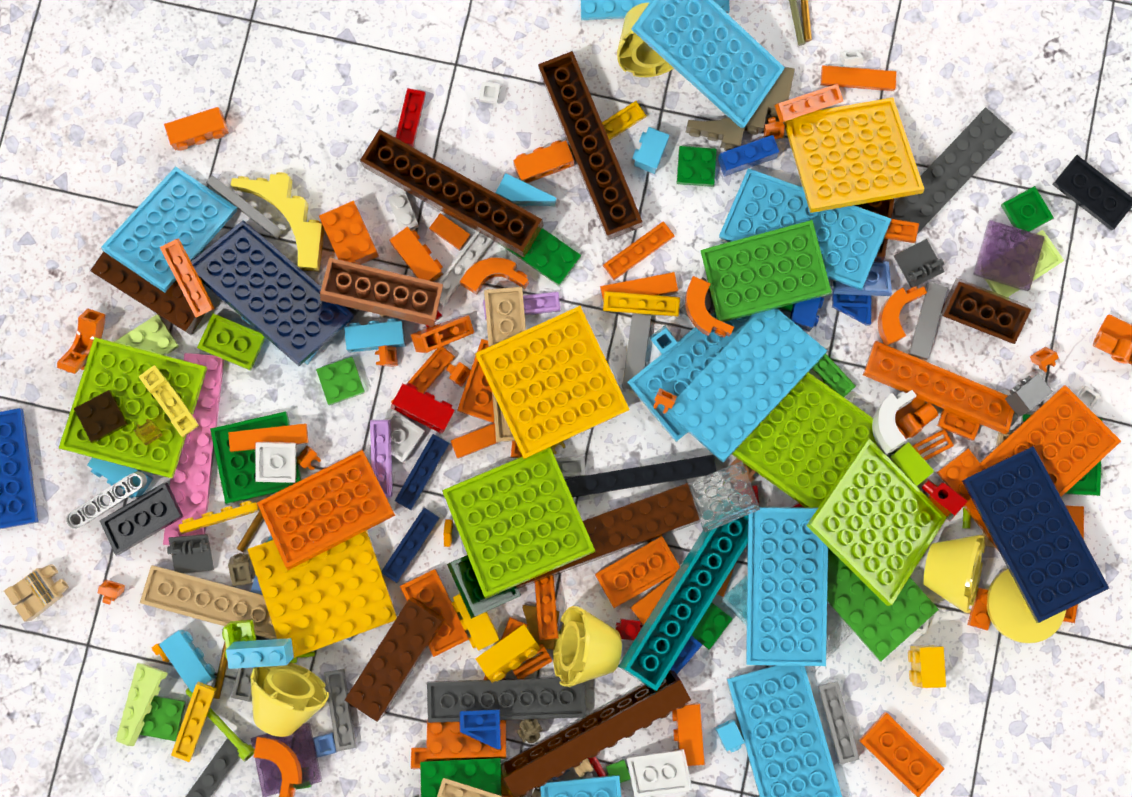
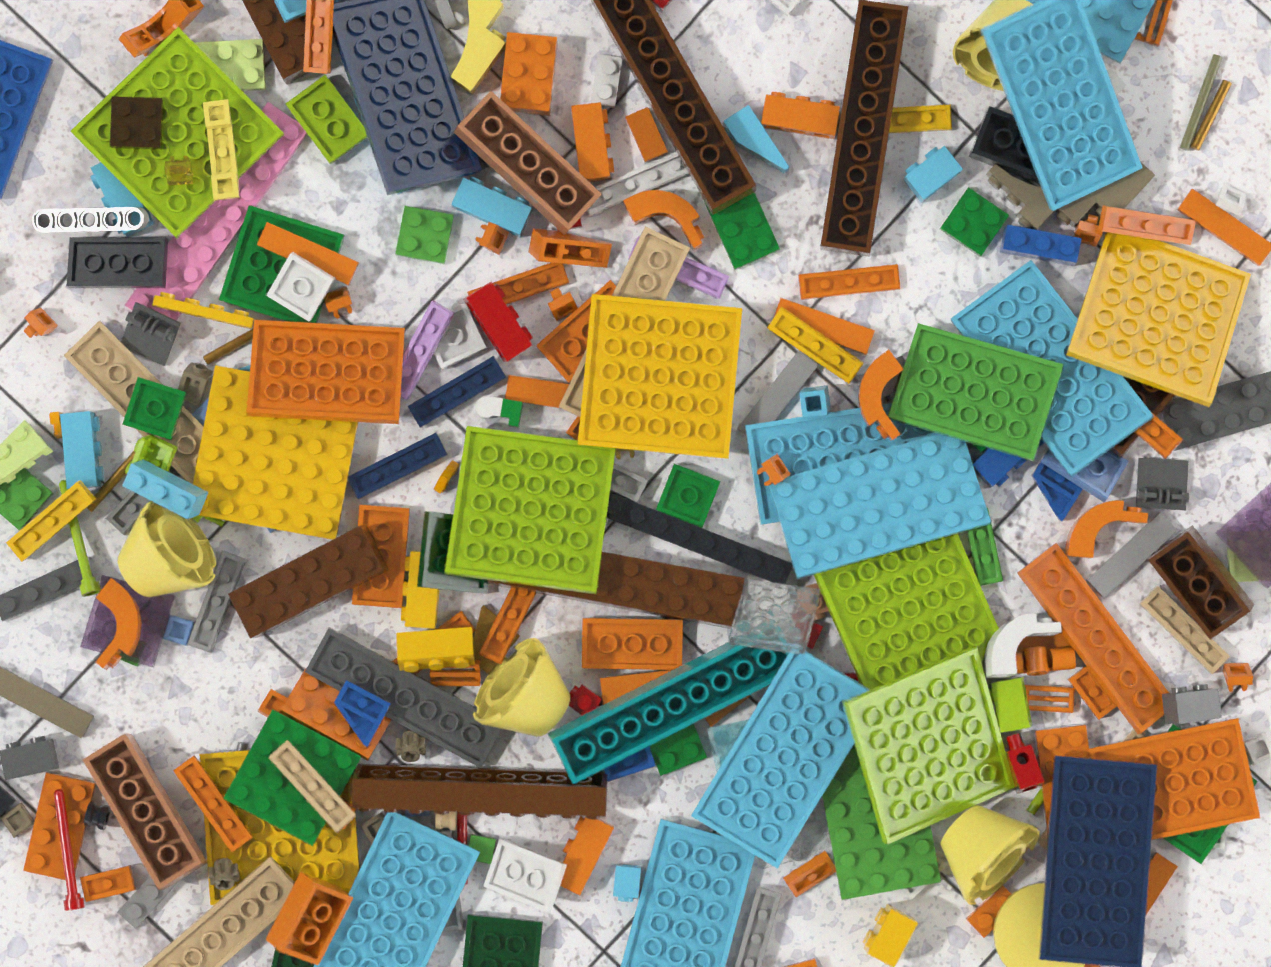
camera: 40 degrees right, 5 degrees up
(222, 602) = (154, 408): none -> green plate
(458, 465) = (497, 407): none -> leg
(616, 451) = (688, 495): none -> green plate
(686, 103) = (1002, 144): none -> black brick
(848, 656) = (810, 874): none -> orange plate
(992, 349) = (1184, 629): none -> tan plate

